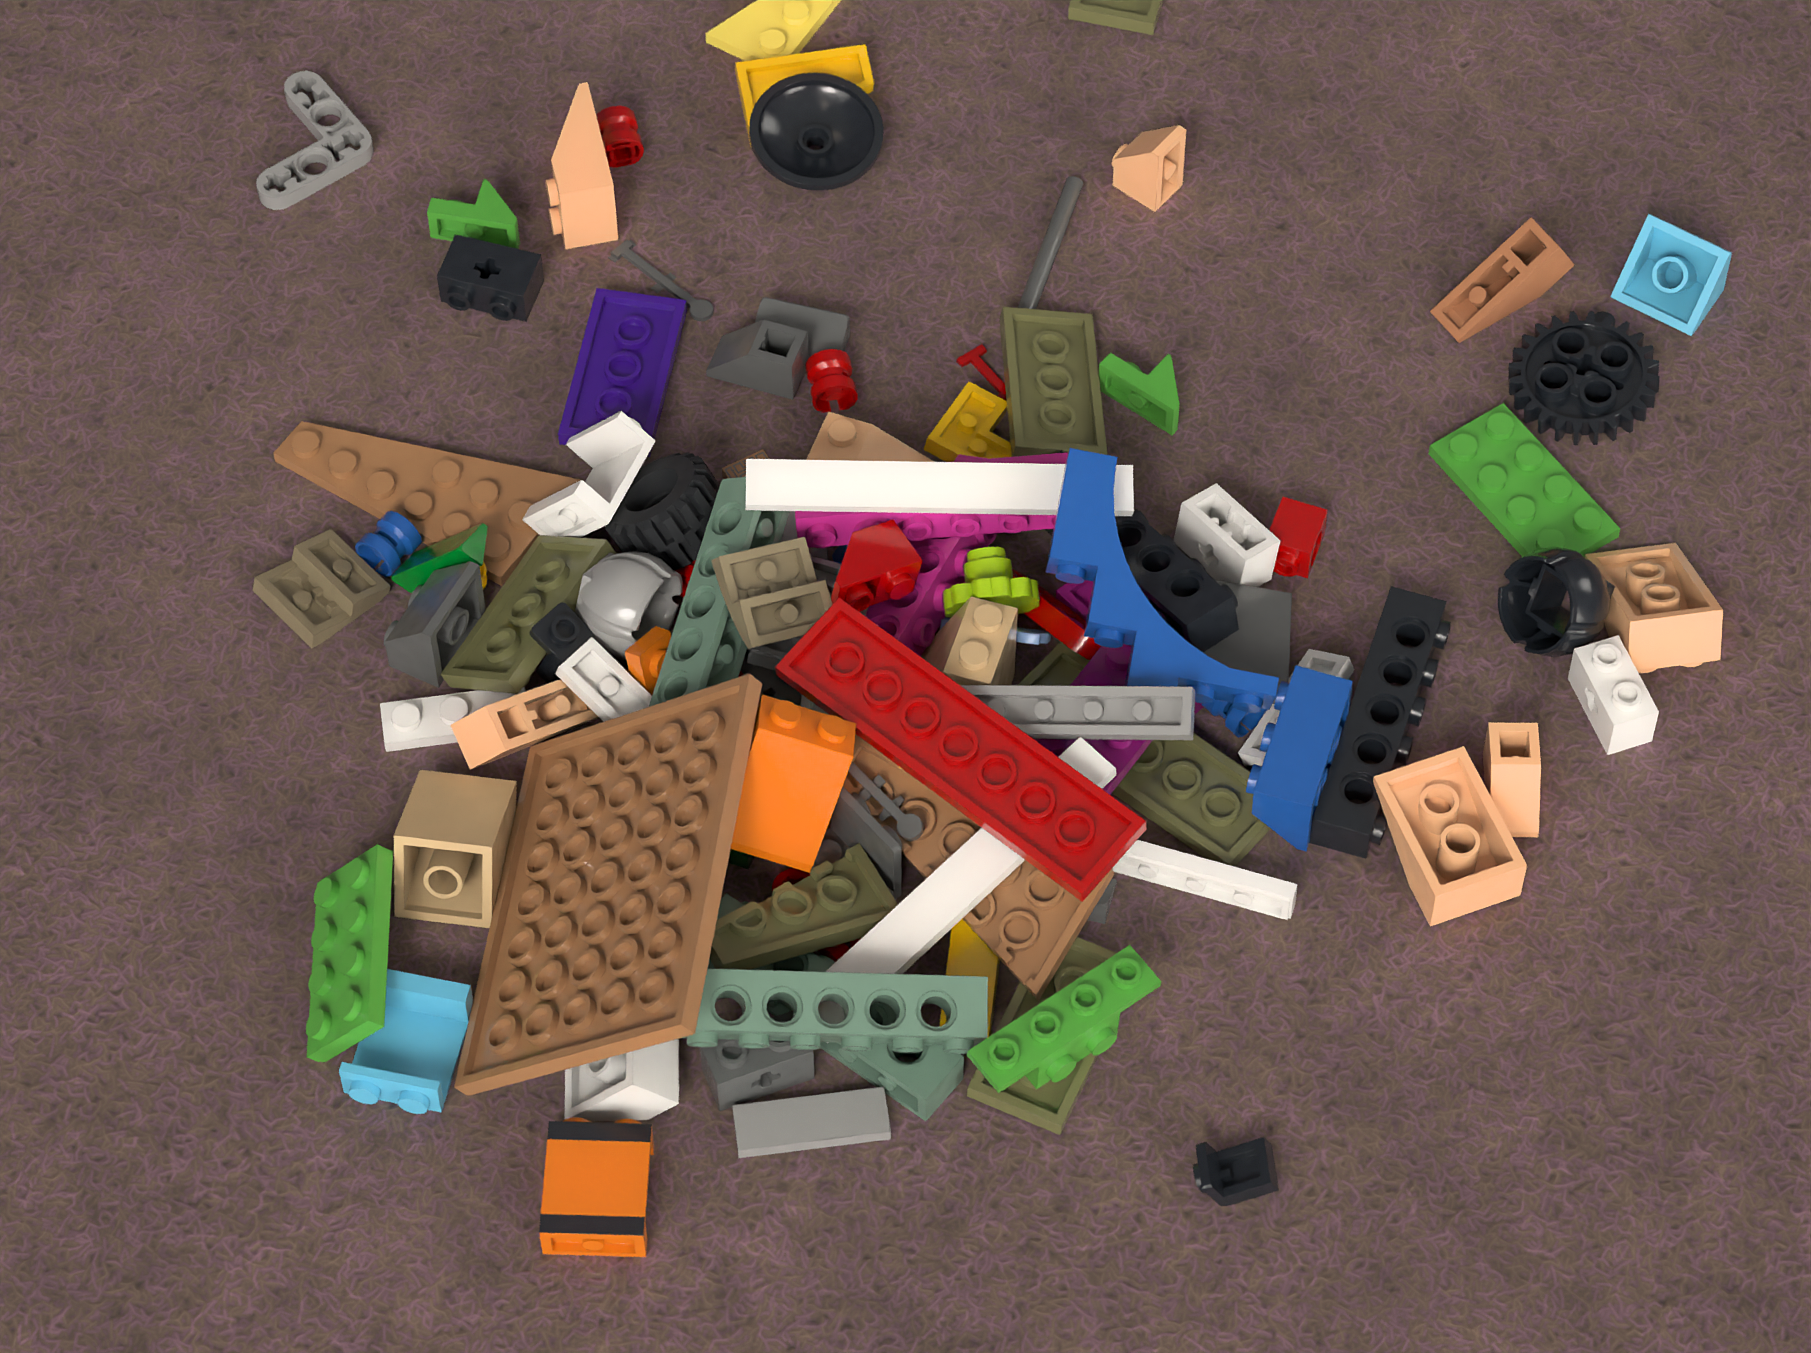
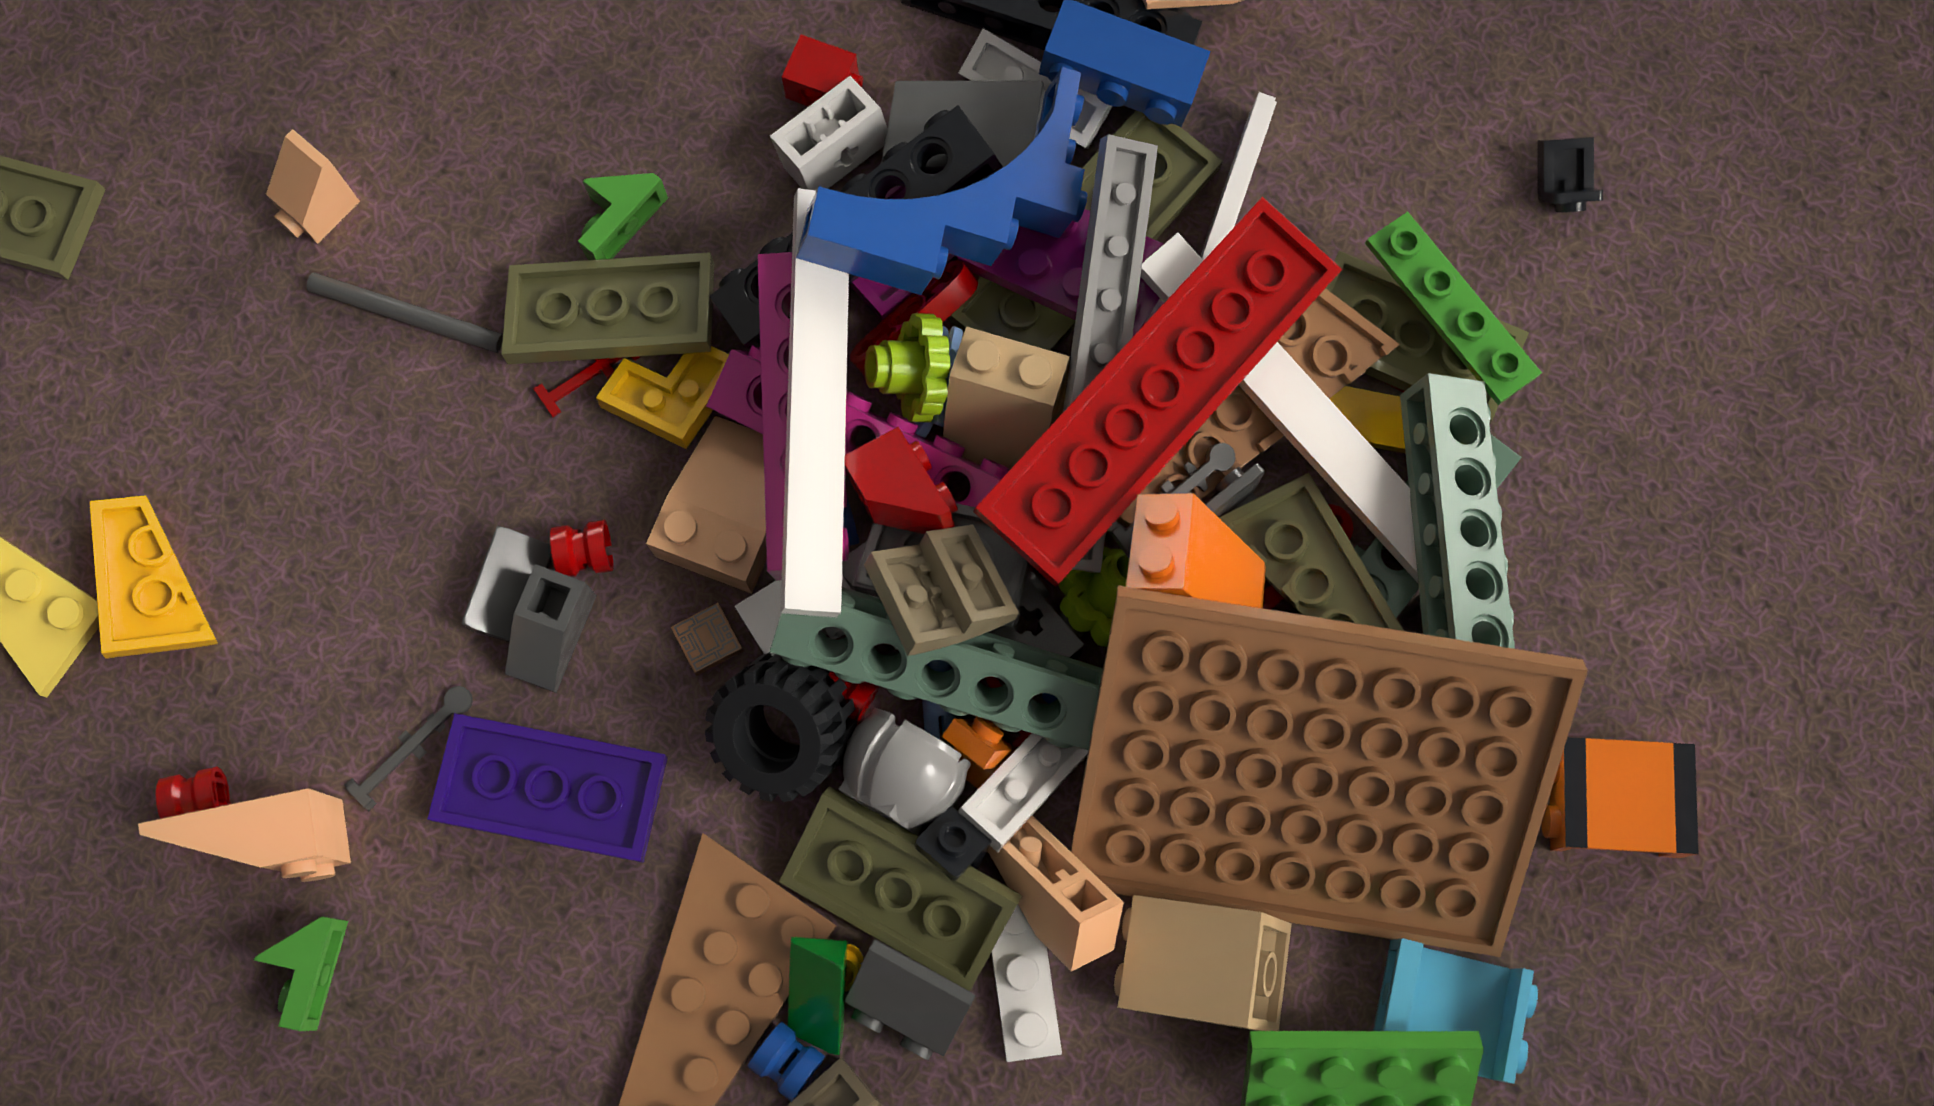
camera: 90 degrees left, 20 degrees up
(490, 278) = (381, 974): black brick -> none
(616, 454) = (731, 805): white panel -> none
(811, 1122) = (1529, 581): light grey tile -> none
(820, 113) = (198, 535): black dish -> none

